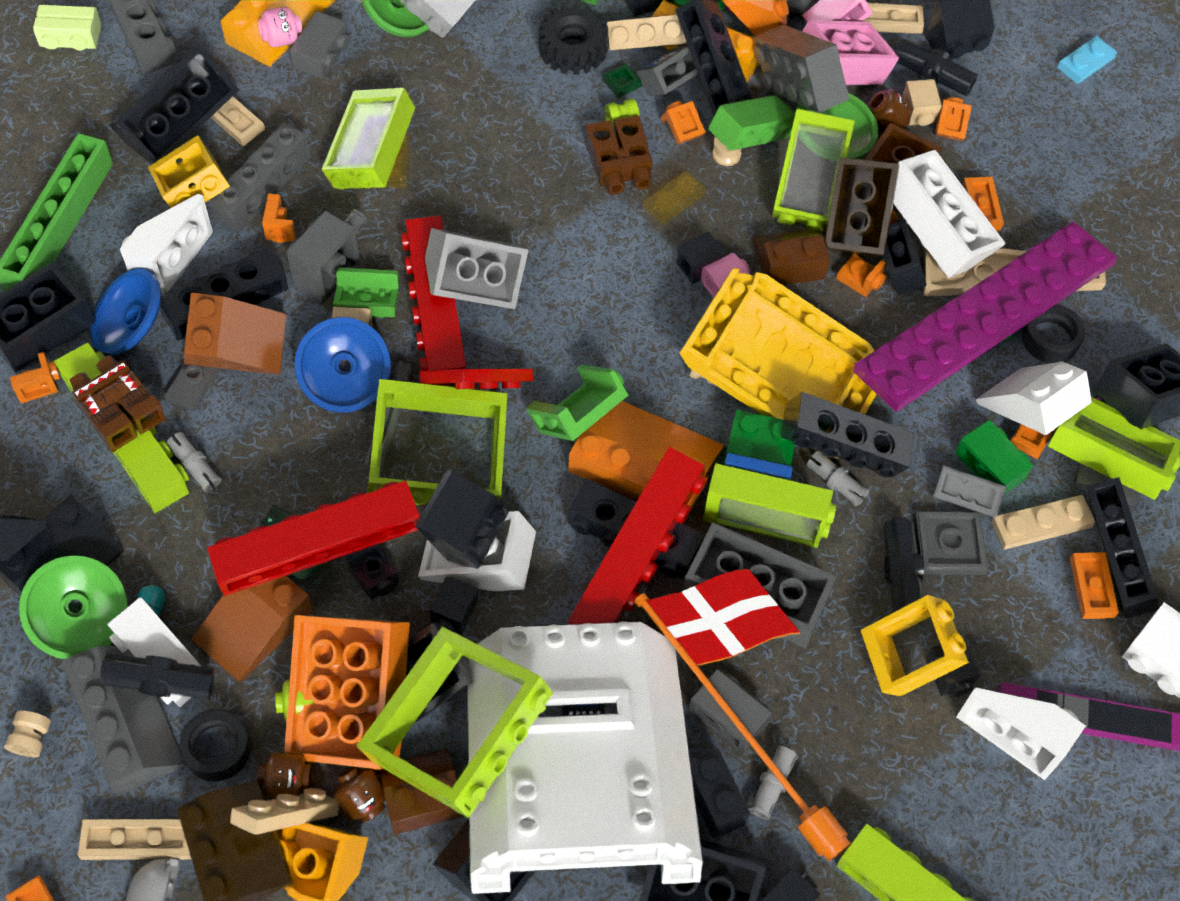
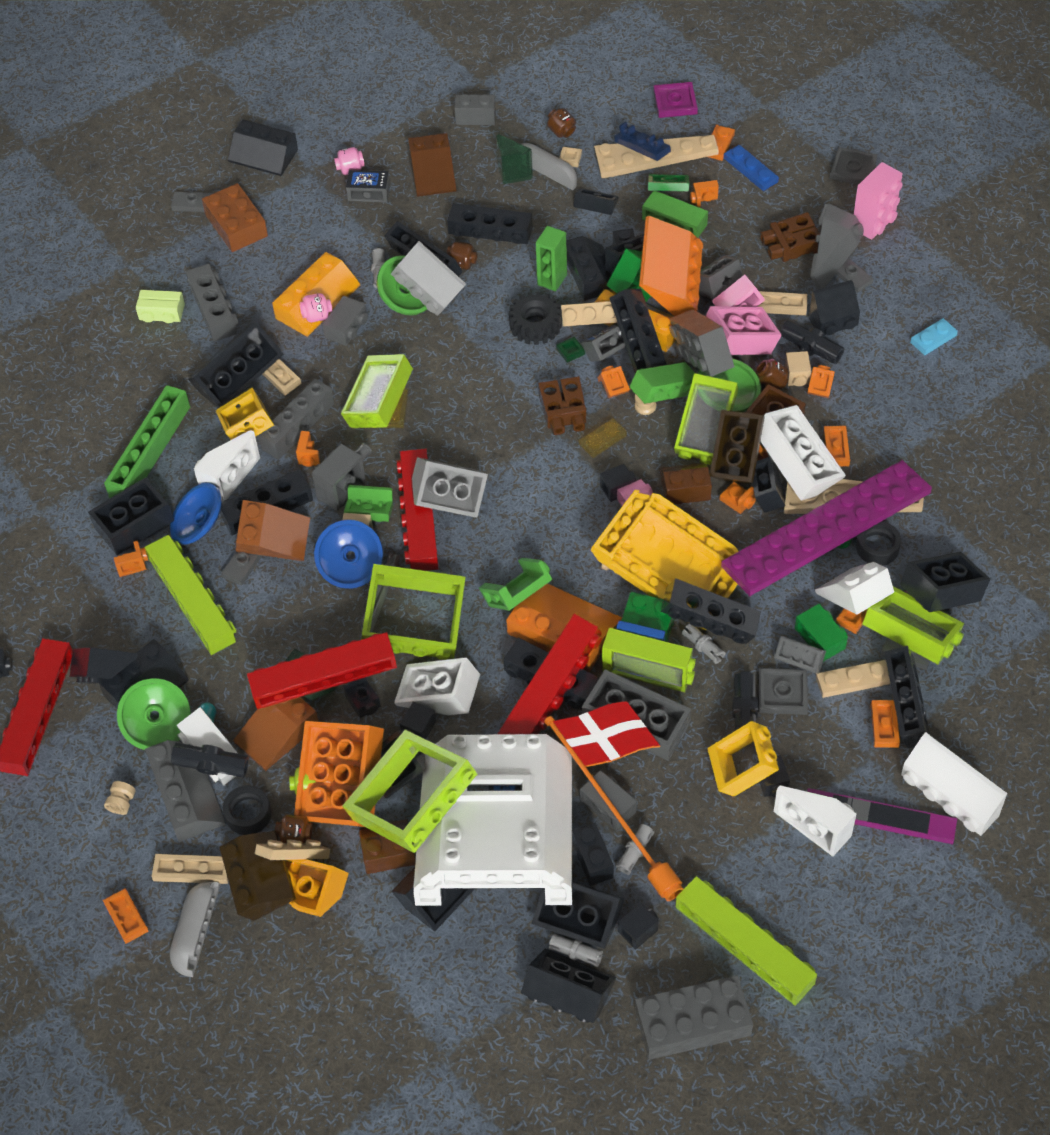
camera: 10 degrees right, 5 degrees down
(107, 394) = (187, 576): reddish brown hips -> none
(193, 462) = (240, 620): light grey pin -> none
(360, 794) = (344, 844): reddish brown head -> none
(461, 520) = (425, 662): black slope -> none
(485, 377) = (450, 565): red wing -> none
(617, 111) = (563, 373): lime wheel -> none

